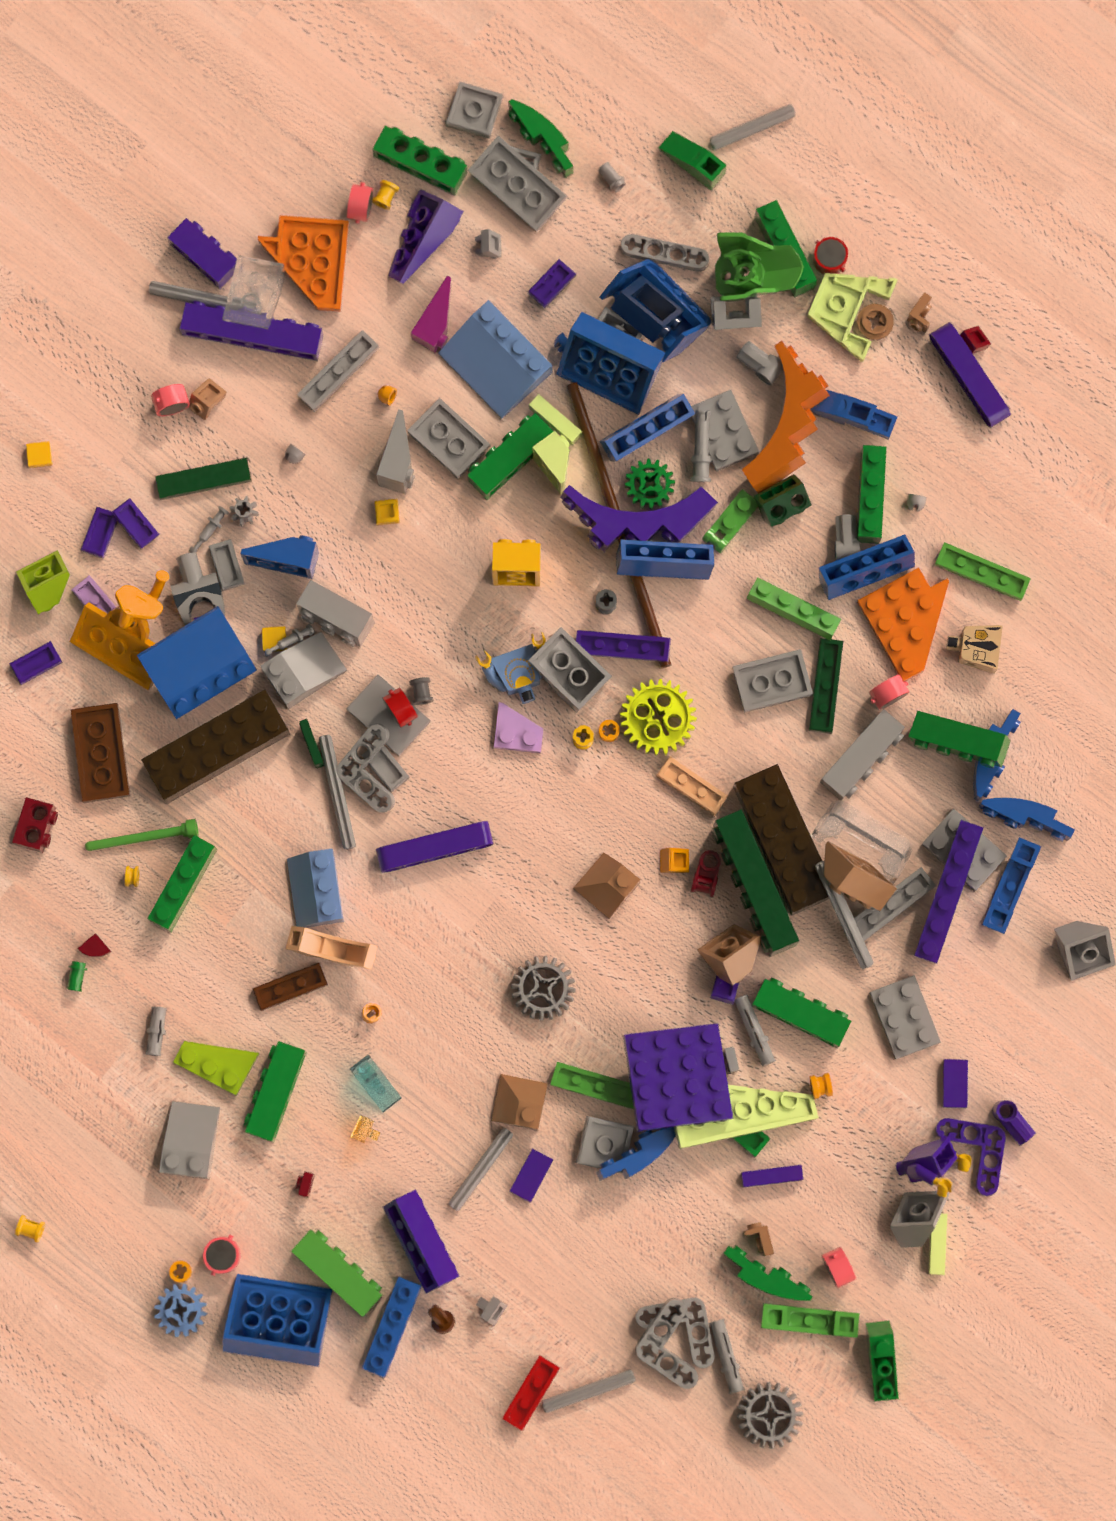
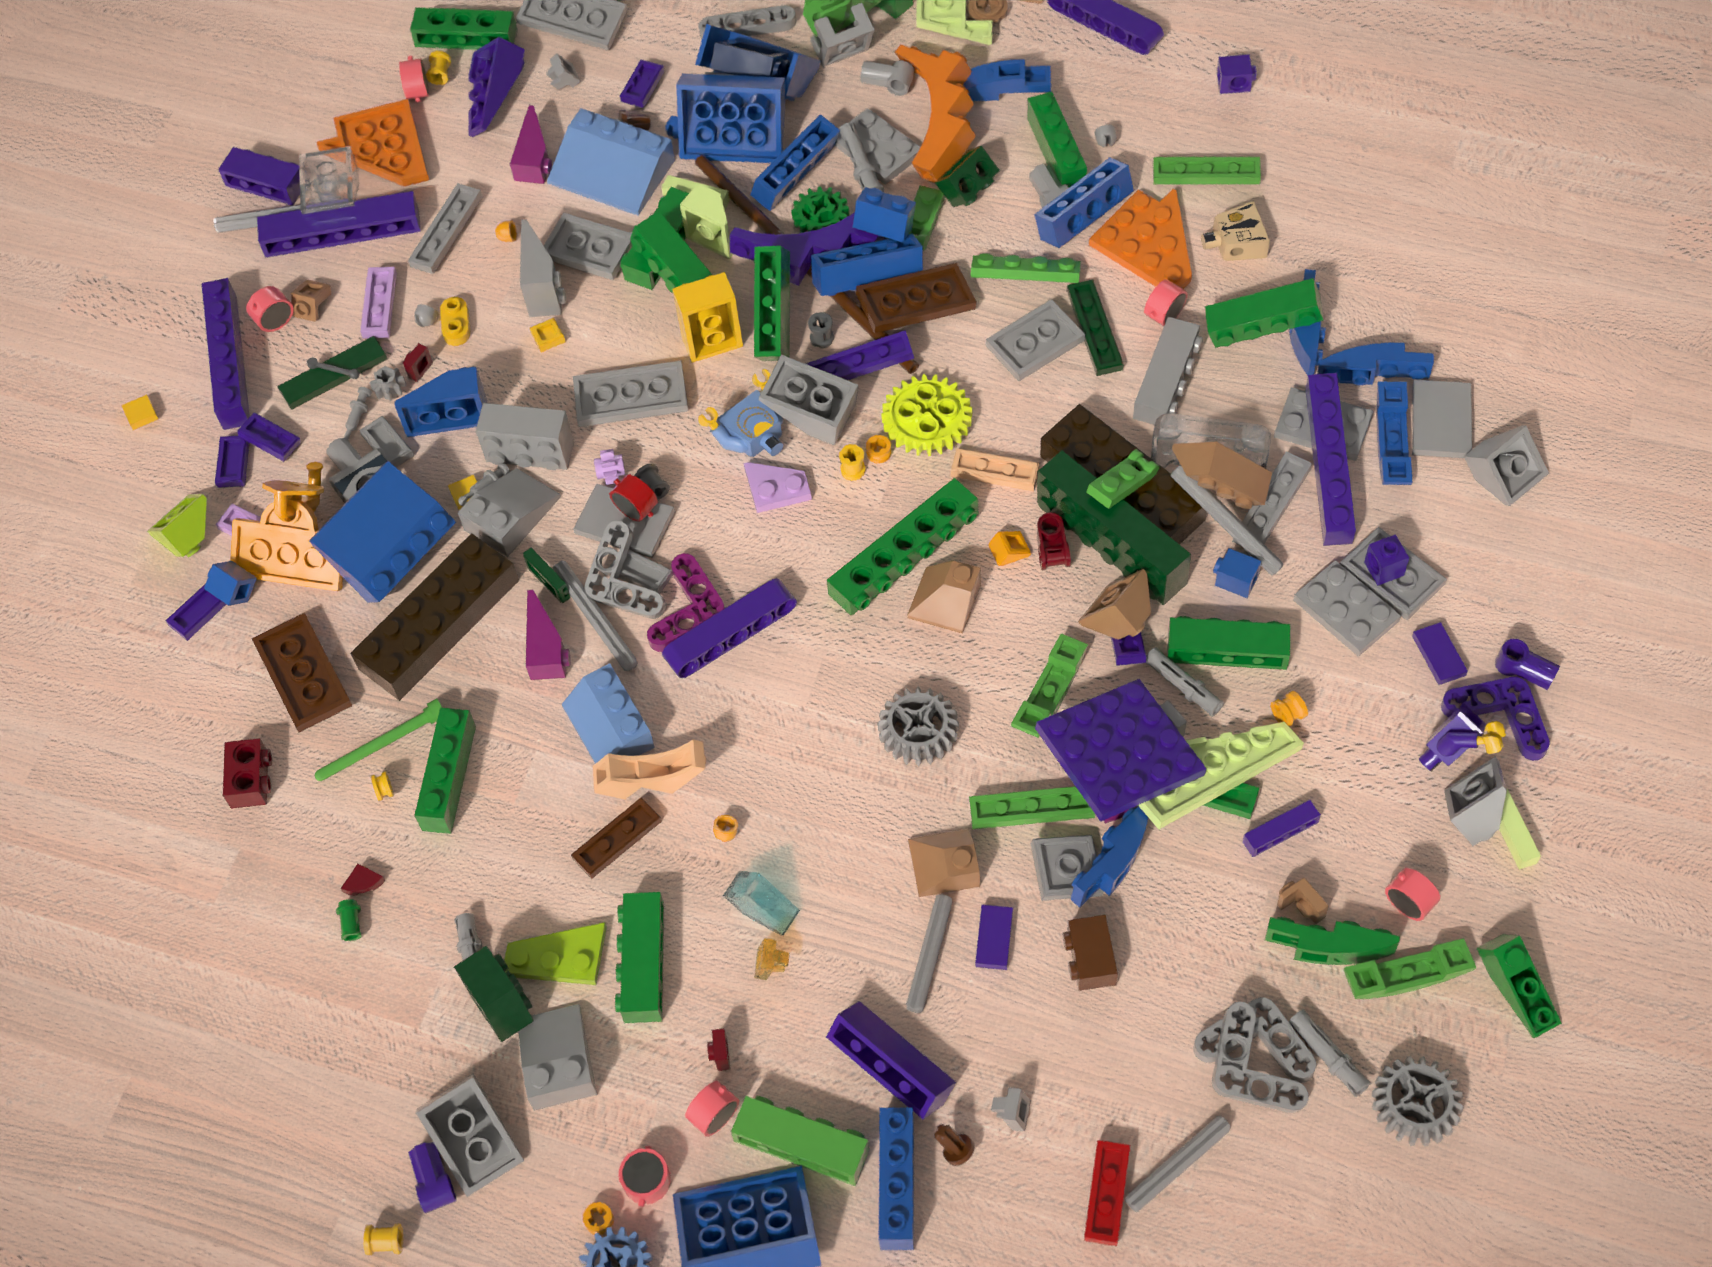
camera: 15 degrees left, 20 degrees down
(67, 652) = (230, 583): none -> blue brick
(75, 1205) = (433, 1184): none -> dark purple piece
(111, 1175) = (469, 1135): none -> light grey slope
(122, 428) = (225, 353): none -> dark purple brick
(161, 1083) = (495, 992): none -> dark green brick
(191, 467) = (313, 364): none -> dark grey hinge
(260, 425) = (378, 302): none -> lavender plate
(273, 499) = (417, 362): none -> dark red plate
(284, 1227) = (712, 1108): none -> coral piece
(289, 807) = (544, 647): none -> magenta slope
(317, 466) = (455, 315): none -> yellow plate
(393, 664) = (609, 466): none -> lavender gear
(414, 820) = (696, 611): none -> magenta beam
(433, 599) = (630, 393): none -> light grey plate
(511, 497) = (667, 252): none -> green brick
(528, 323) = (639, 121): none -> reddish brown piece
(572, 572) = (771, 302): none -> green brick
(594, 1217) = (1091, 953): none -> reddish brown brick
(646, 802) = (951, 498): none -> green brick
(653, 995) = (1052, 684): none -> bright green slope
(693, 603) = (915, 297): none -> reddish brown plate
(694, 524) = (884, 214): none -> blue brick
(775, 855) = (1122, 479): none -> bright green plate
(834, 956) = (1237, 572): none -> blue brick
(949, 996) = (1386, 560): none -> dark purple brick
(953, 1002) = (1405, 593): none -> light grey tile
(1051, 483) = (1235, 74): none -> dark purple brick
(1057, 883) = (1441, 419): none -> light grey tile

